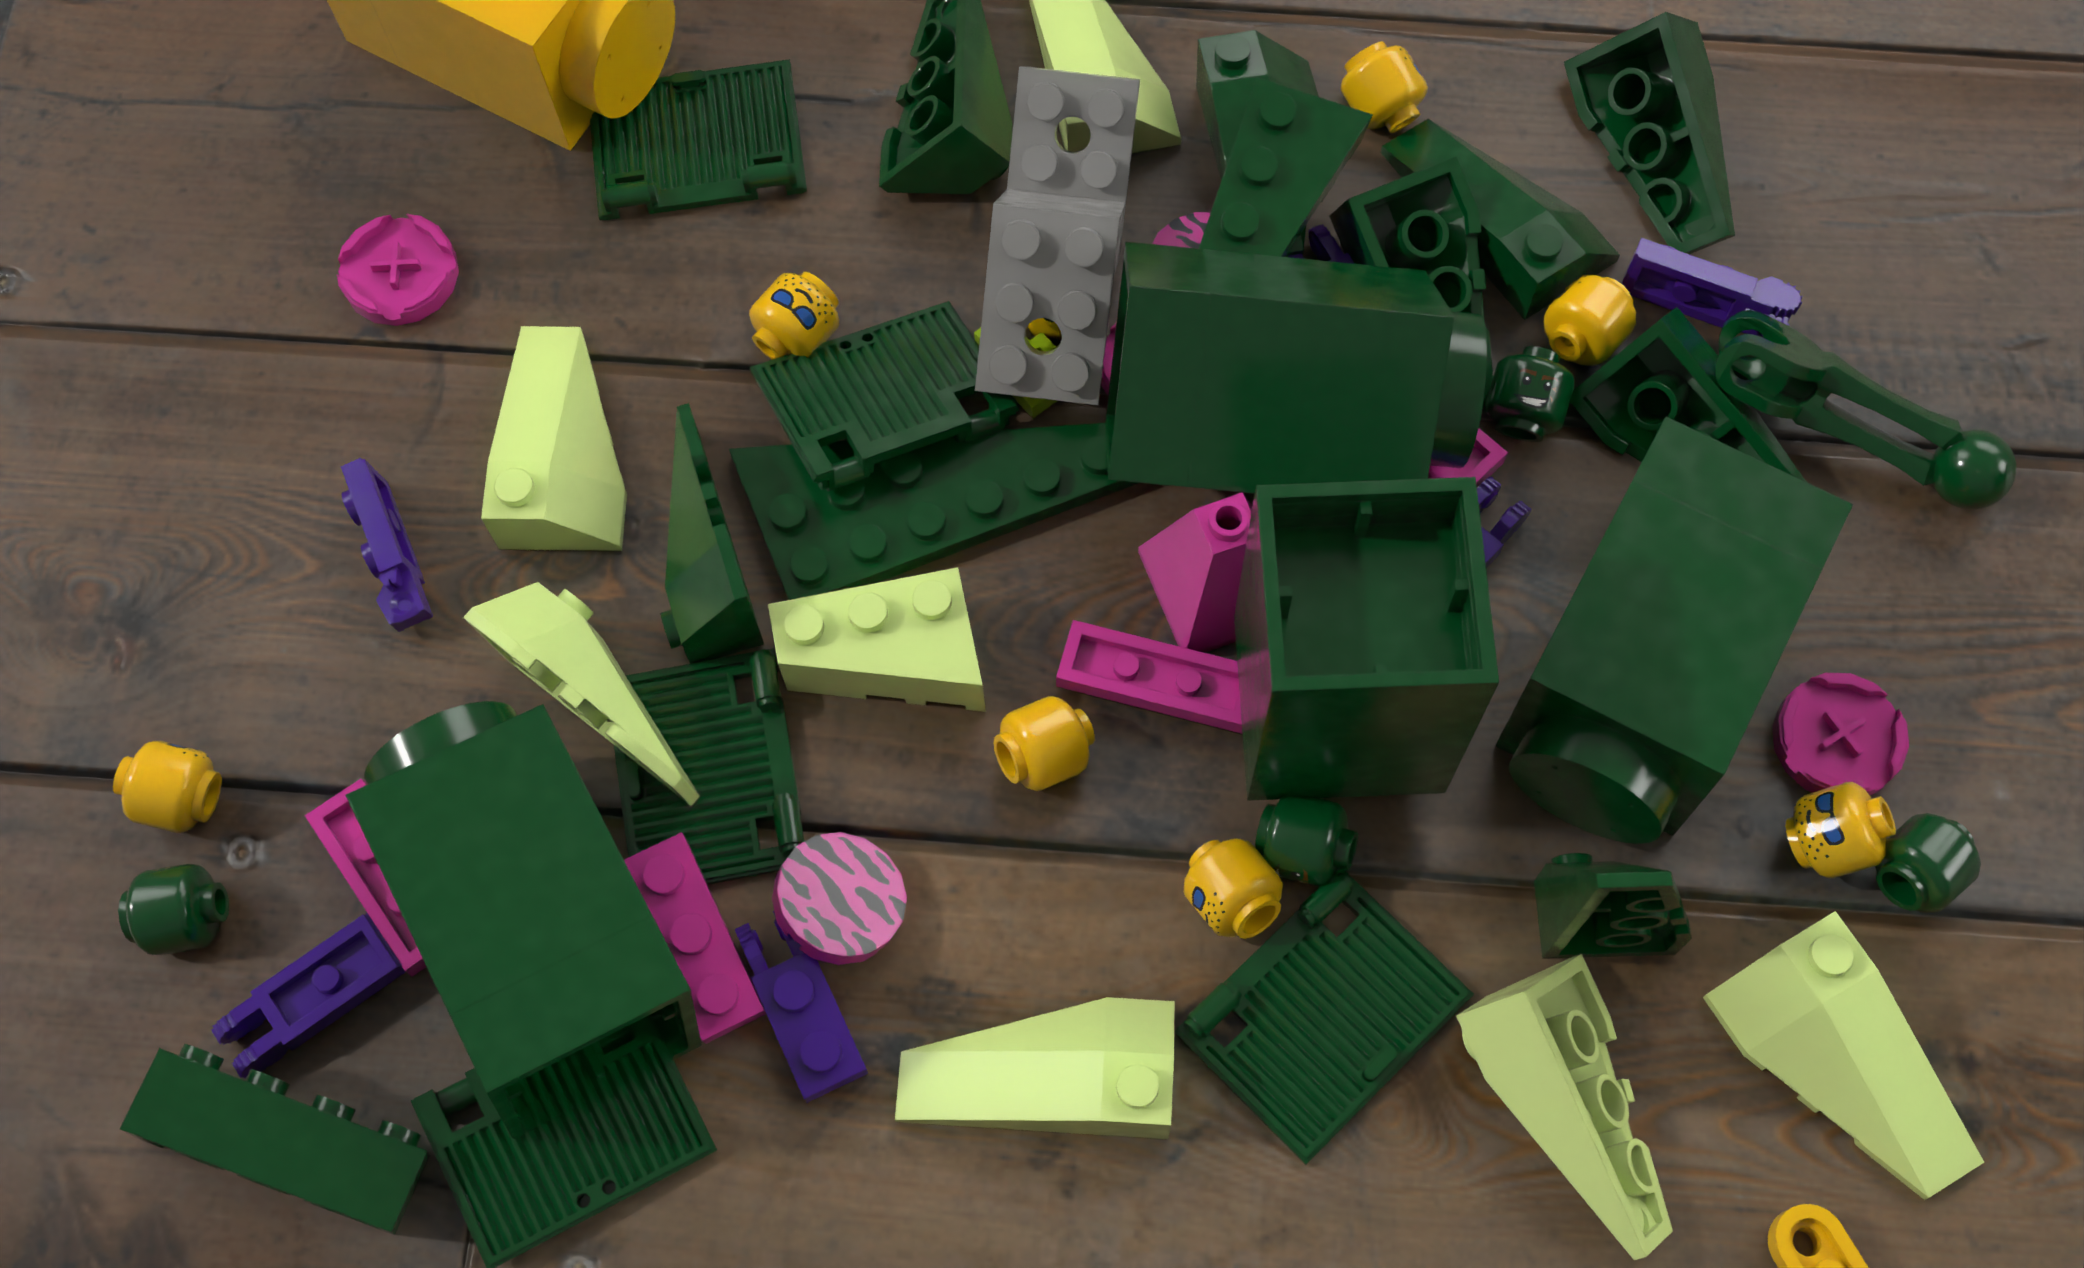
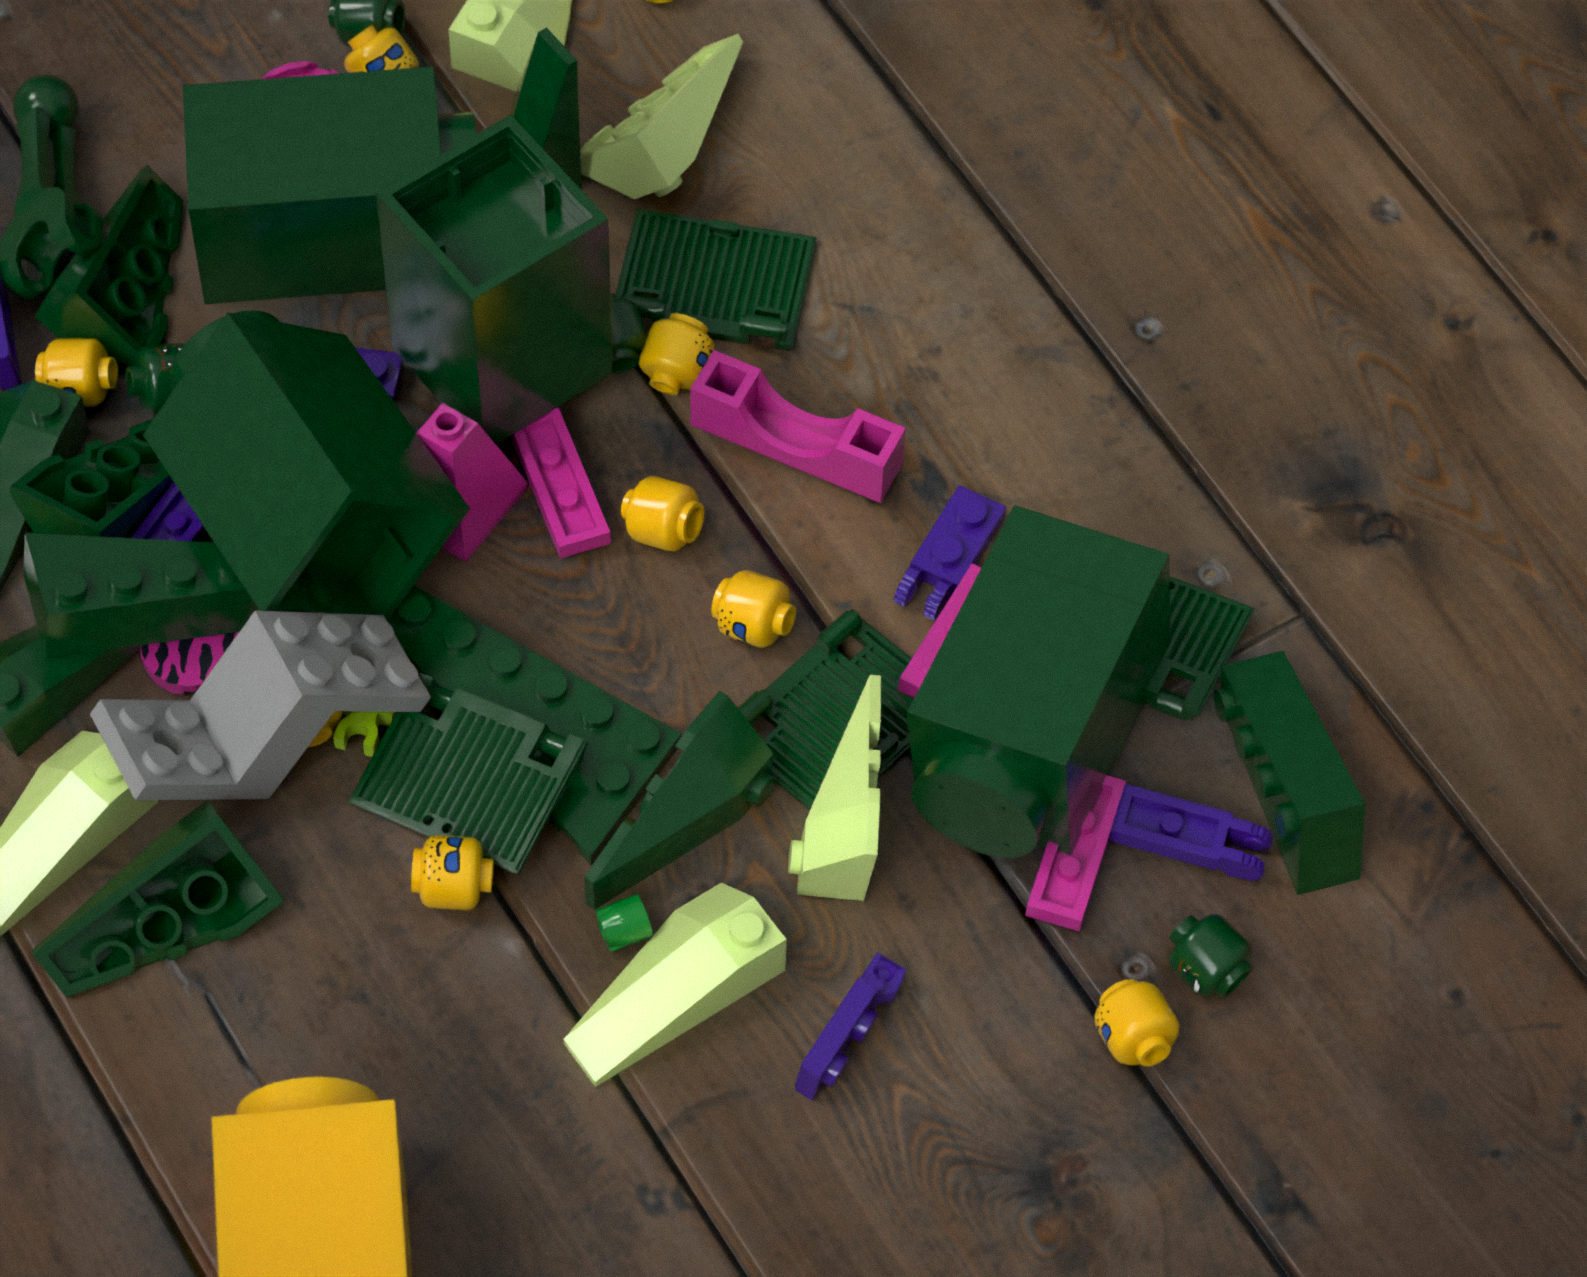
camera: 130 degrees left, 10 degrees down
(397, 269) = (613, 1214): dark pink tile -> none
(640, 434) = (623, 922): none -> green hose
(701, 141) = (345, 1044): dark green window -> none
(839, 898) = (865, 562): tile -> none
(867, 752) = (753, 608): none -> yellow head
(882, 640) = (661, 641): yellowish green wedge -> none
(1000, 963) = (742, 407): none -> dark pink arch
(1063, 1071) = (856, 358): yellowish green wedge -> none

